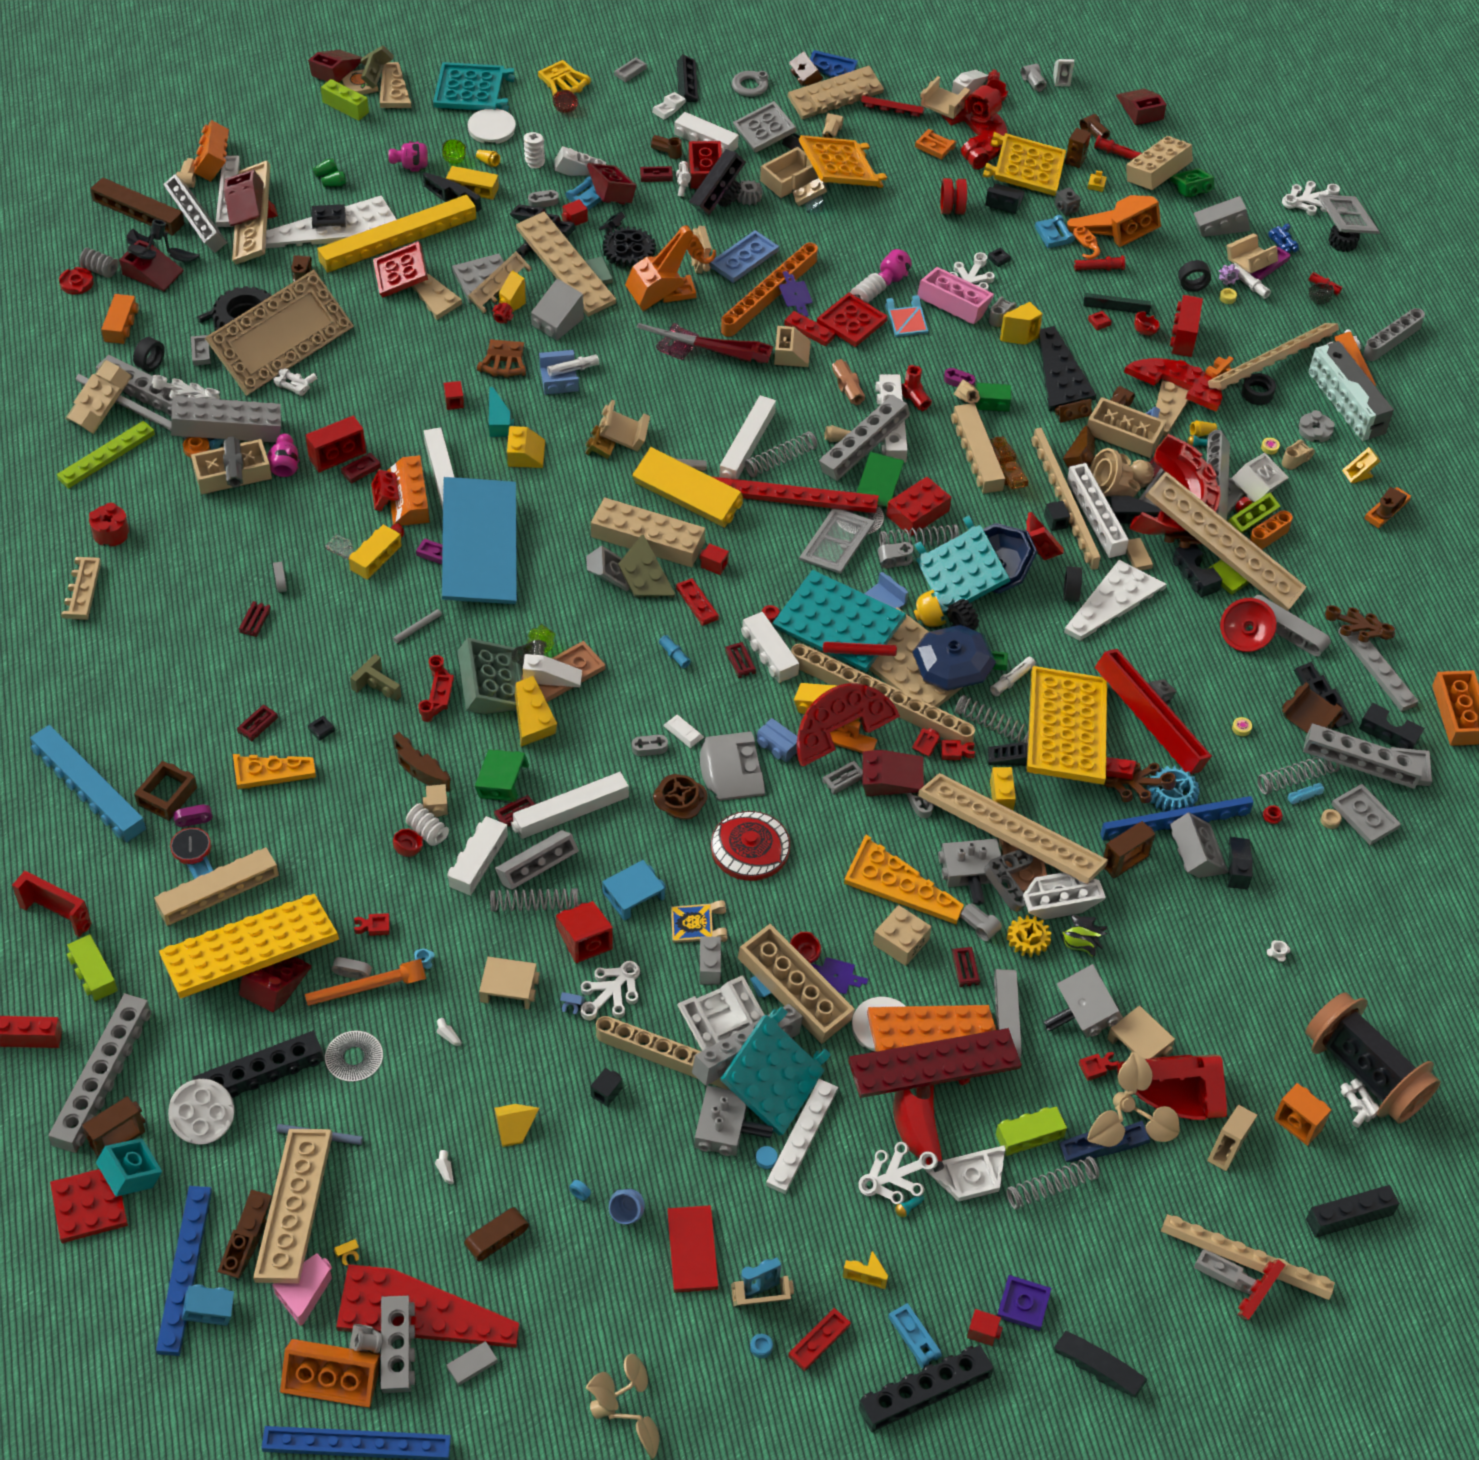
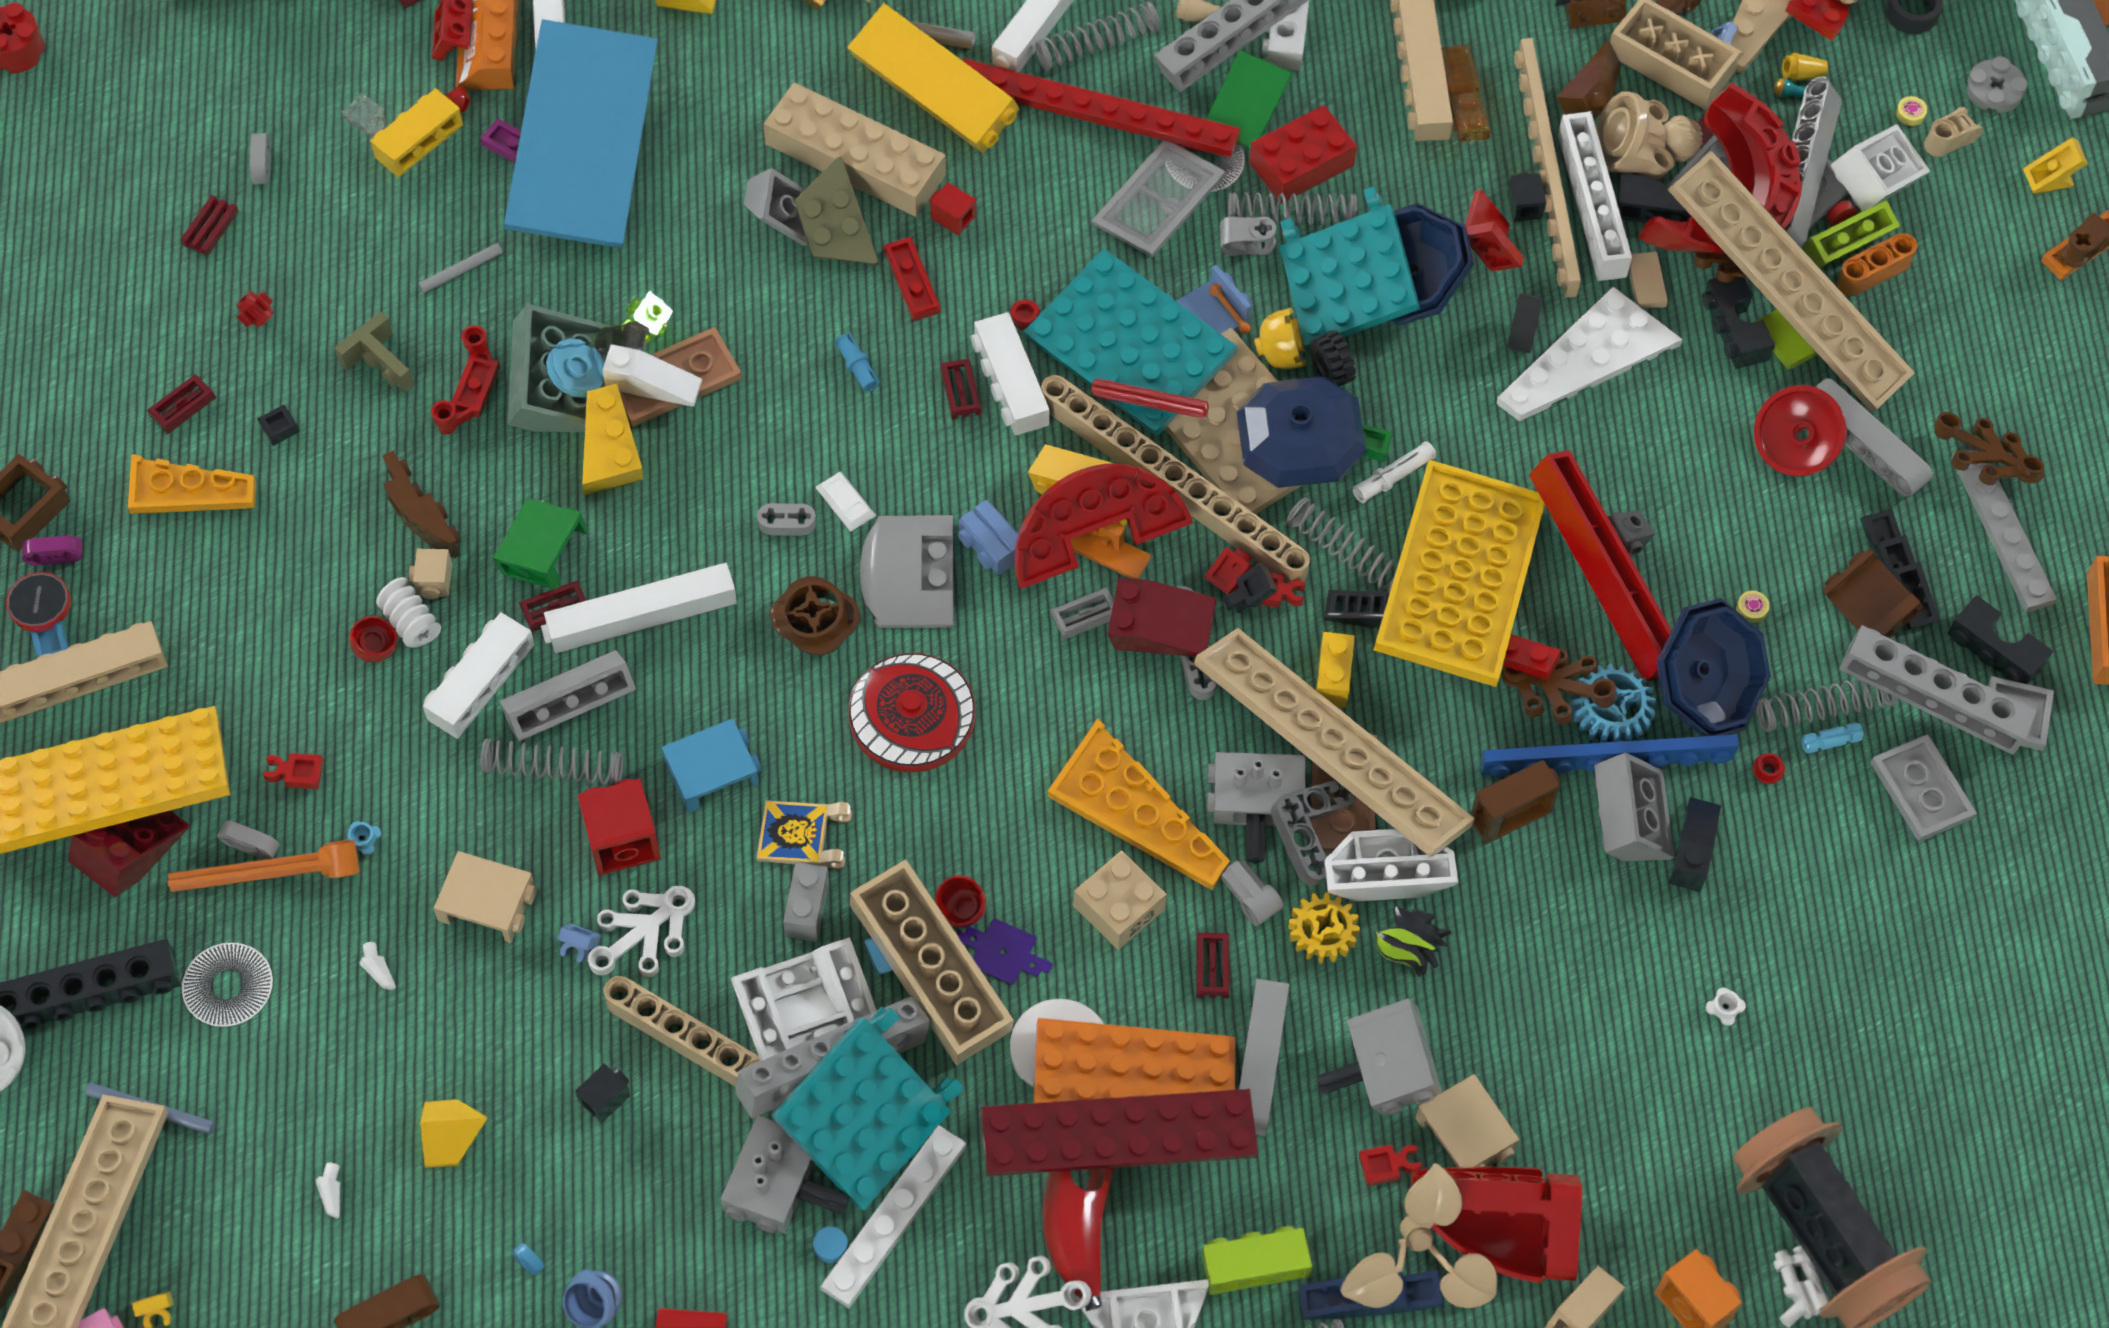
camera: 10 degrees right, 10 degrees up
(294, 662) = (254, 309): none -> red gear
(503, 672) = (575, 367): none -> medium azure tile
(883, 587) = (1216, 290): none -> orange hinge
(945, 748) = (1253, 589): none -> black plate
(1229, 759) = (1713, 668): none -> dark blue rock
(1331, 819) = (1864, 787): tan tile -> none

